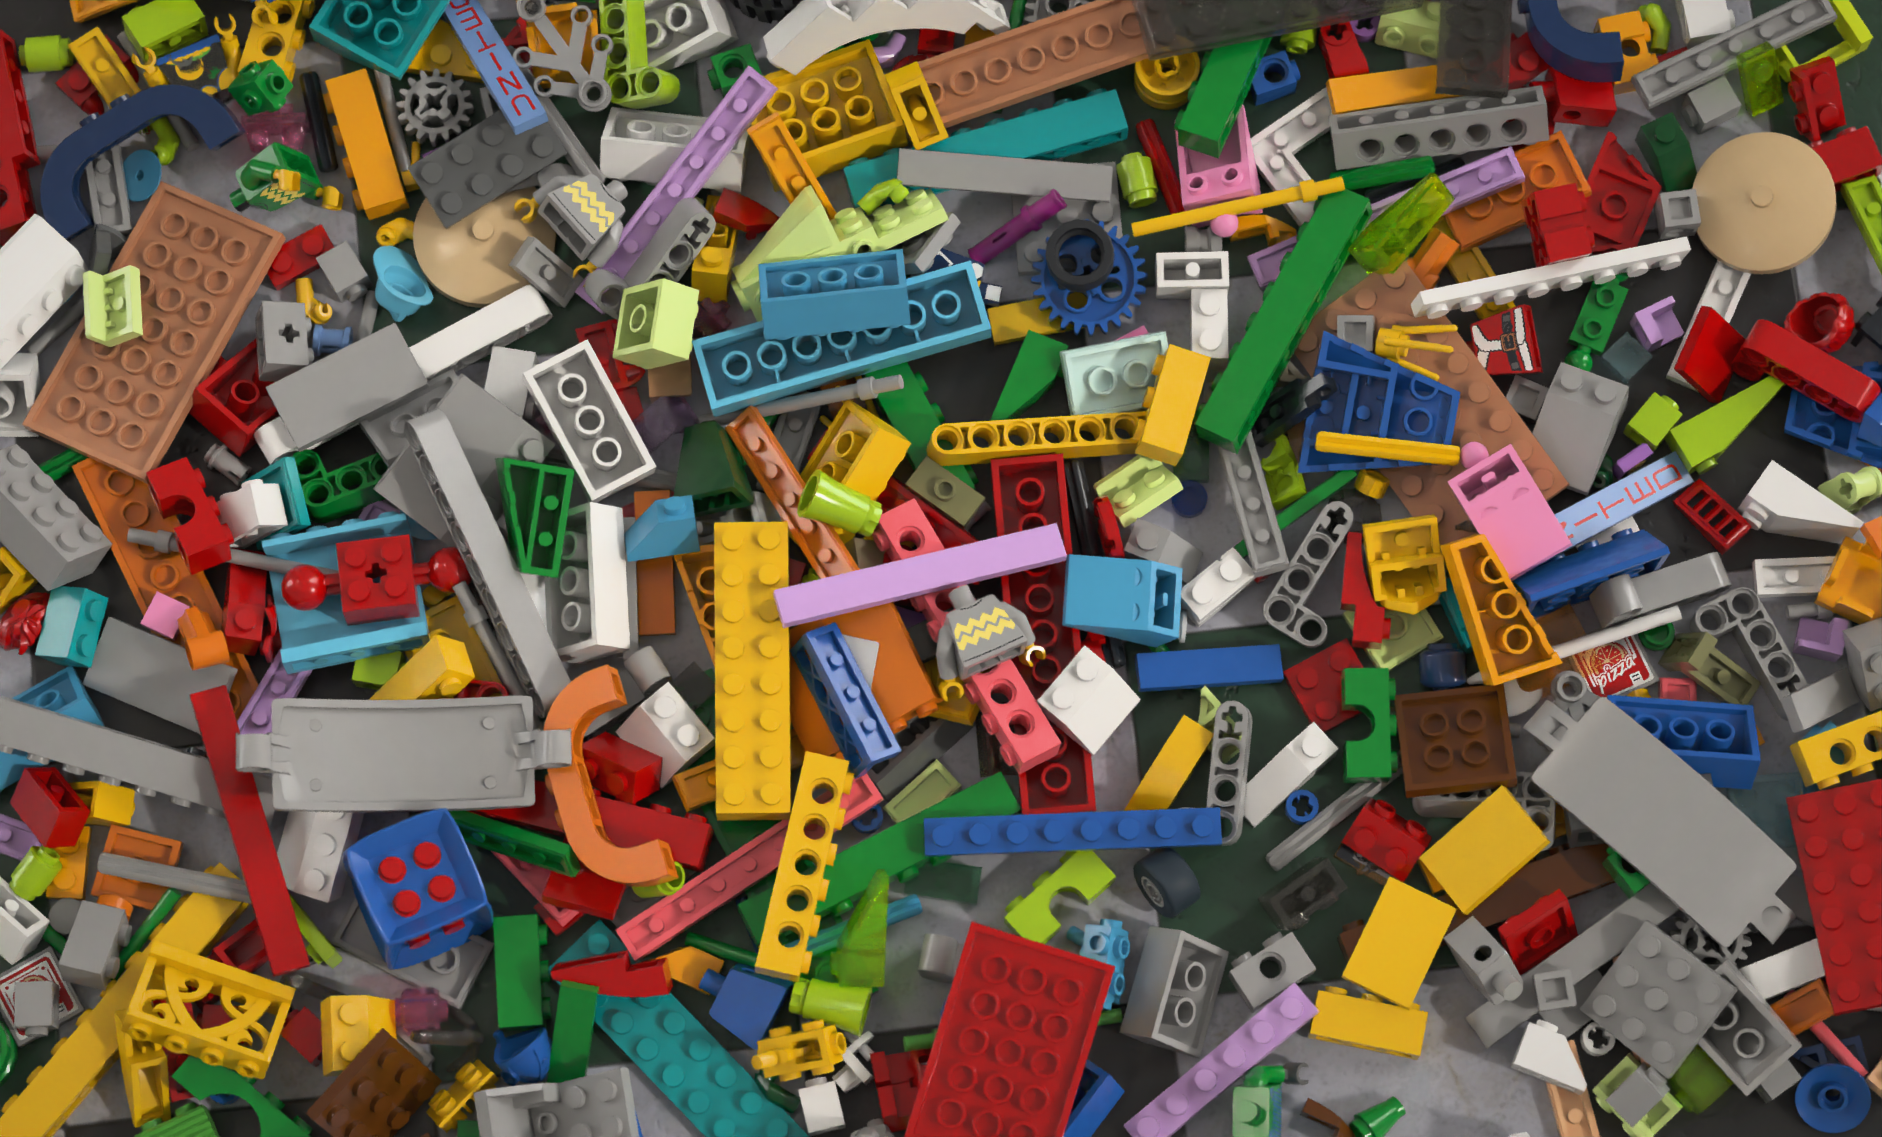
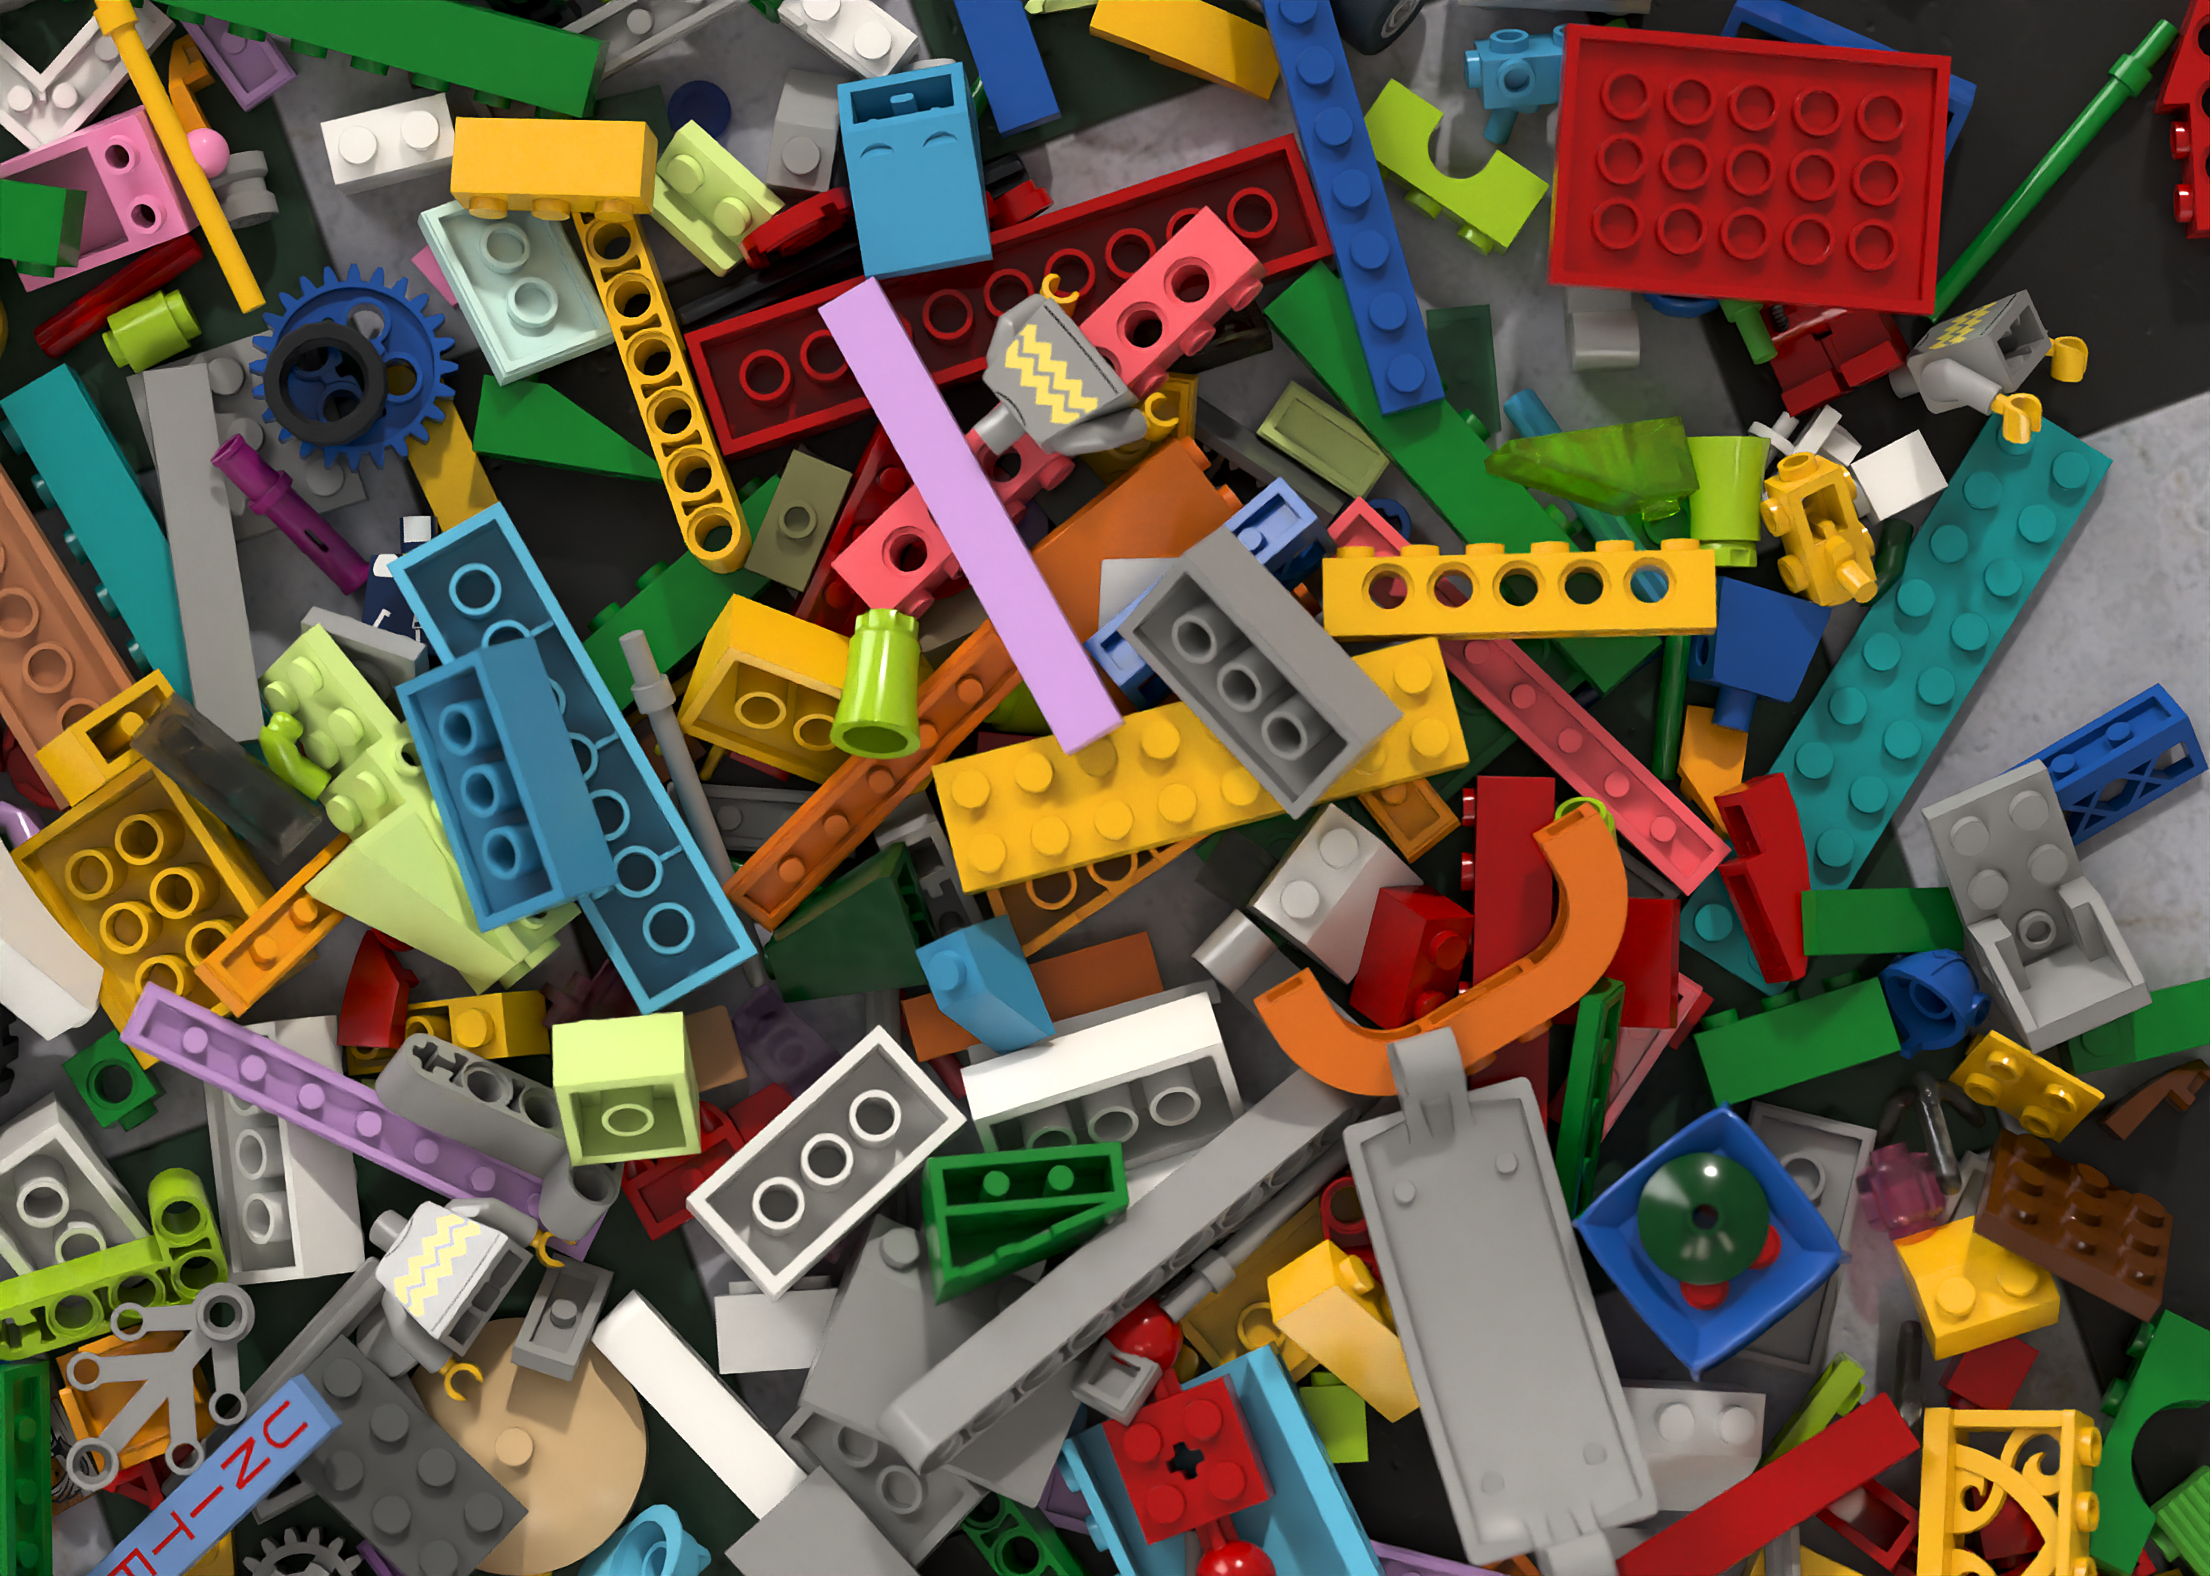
camera: 100 degrees left, 10 degrees up
(426, 545) = (1115, 1387): none -> light grey tile
(431, 894) = (1695, 1253): none -> dark green dish
(792, 705) = (1259, 671): none -> light grey slope
(878, 156) = (226, 778): none -> clear smoke plate
(1088, 700) = (1112, 185): white slope -> none
(1182, 271) = (304, 194): white brick -> none

